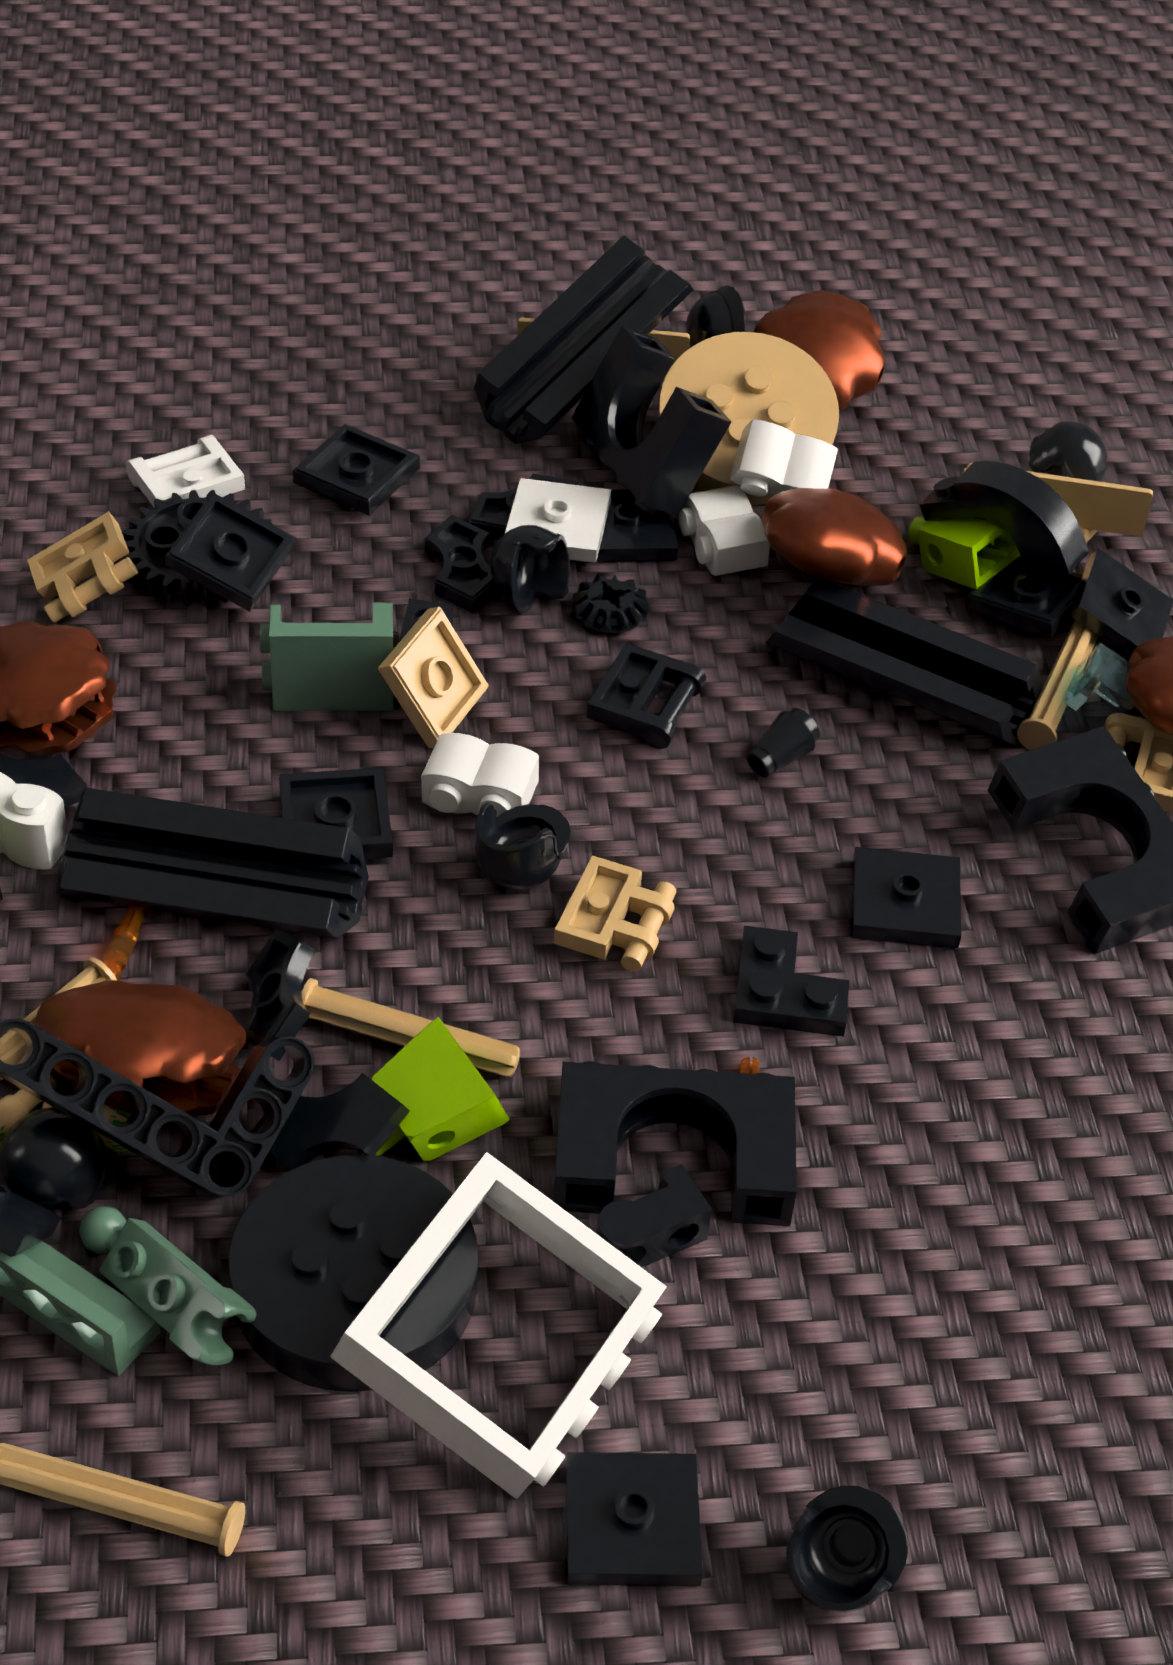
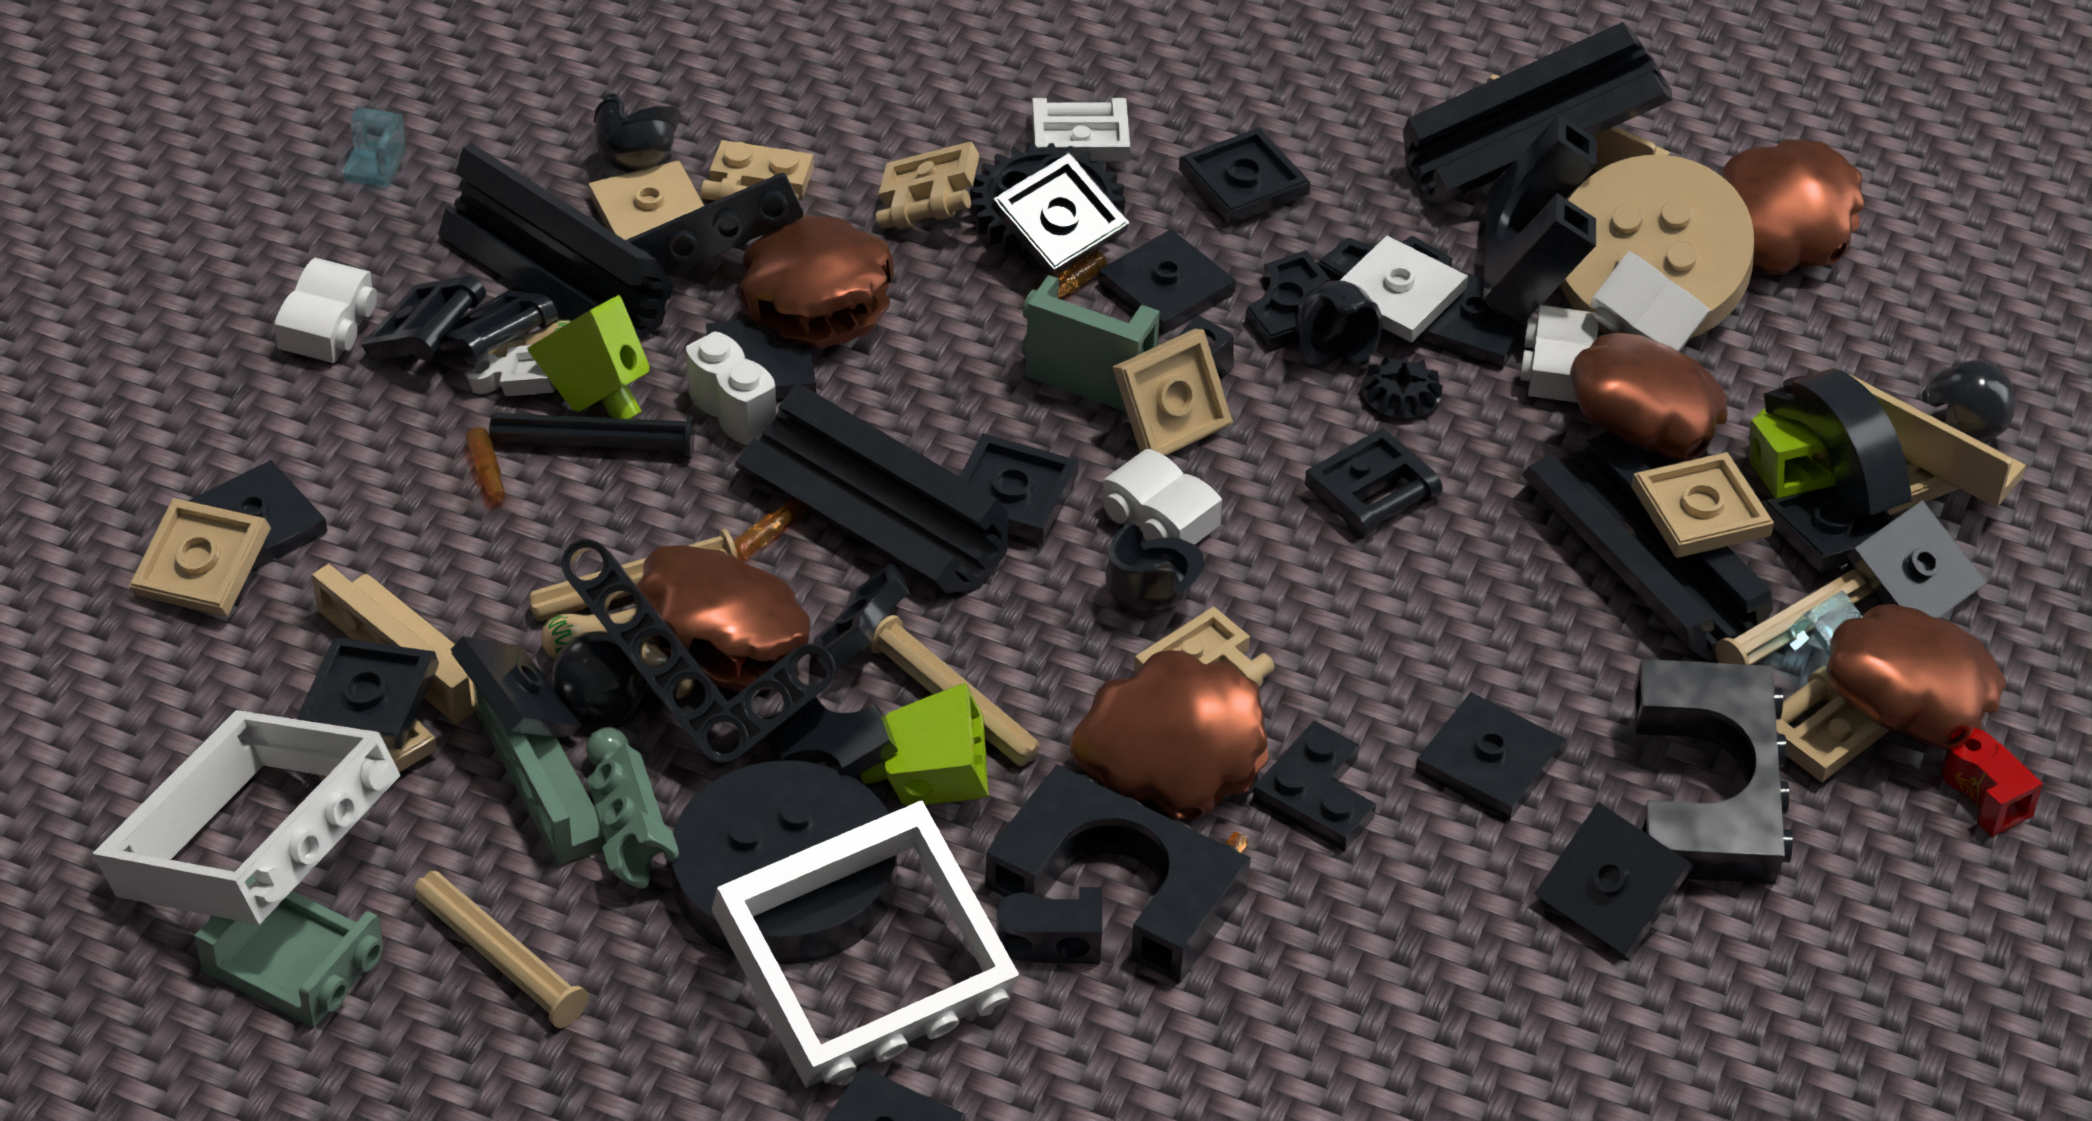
camera: 30 degrees right, 0 degrees up
(261, 611) = (1080, 273): none -> clear orange piece
(345, 580) = (1168, 278): none -> black plate
(646, 987) = (1174, 734): none -> copper piece
(715, 315) = (1701, 136): black helmet -> none
(784, 741) = (1471, 574): black cone -> none
(942, 612) = (1702, 504): none -> tan plate
(1096, 966) = (1613, 880): none -> black plate

